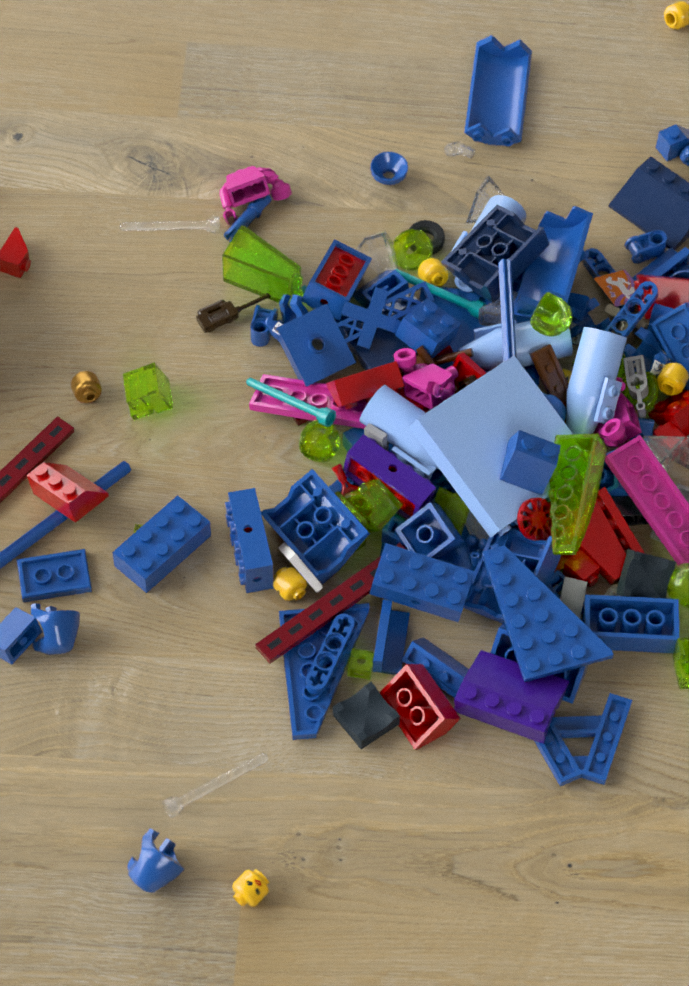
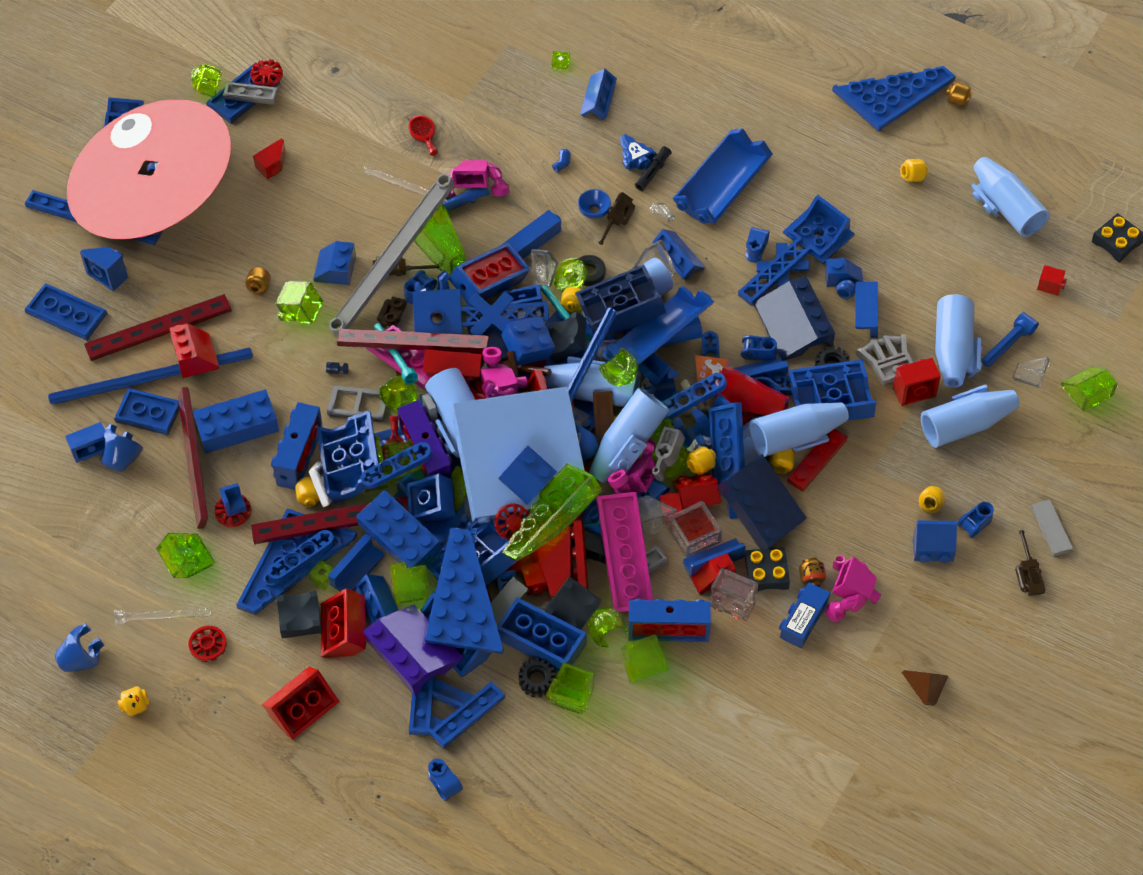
camera: 30 degrees right, 0 degrees up
(141, 602) = (193, 458): none -> dark red tile
(157, 335) = (335, 263): none -> blue slope
(167, 170) = (426, 139): none -> red piece
(200, 708) = (184, 554): none -> clear neon green slope
(216, 628) = (232, 499): none -> blue panel
(218, 639) = (242, 520): none -> red wheel
(222, 301) = (392, 254): none -> light grey piece
(229, 444) = (334, 367): none -> dark blue piece
(253, 38) = (560, 60): none -> clear neon green tile
(253, 354) = (396, 307): none -> dark brown piece
(272, 459) = (360, 392): none -> light grey window
(285, 791) = (207, 643): none -> red wheel
(304, 379) = (412, 340): none -> tile
(316, 57) = (599, 94): none -> blue panel
(326, 137) = (564, 161): none -> blue arm
(349, 220) = (535, 234): none -> blue brick
(384, 513) = (398, 469): none -> blue beam
(394, 102) = (635, 154): none -> blue rock
(418, 167) = (616, 215): none -> dark brown piece
(423, 104) = (657, 163): none -> black pin
(428, 805) = (301, 702): none -> red slope
(461, 632) = (408, 582): none -> clear neon green plate
(464, 307) = (568, 336): none -> black brick
(509, 186) = (680, 254): none -> blue panel
(574, 145) = (756, 243): none -> blue piece
(622, 96) = (818, 219): none -> blue piece
(630, 817) = (445, 782): none -> blue piece
(650, 680) = (532, 667): none -> black tyre

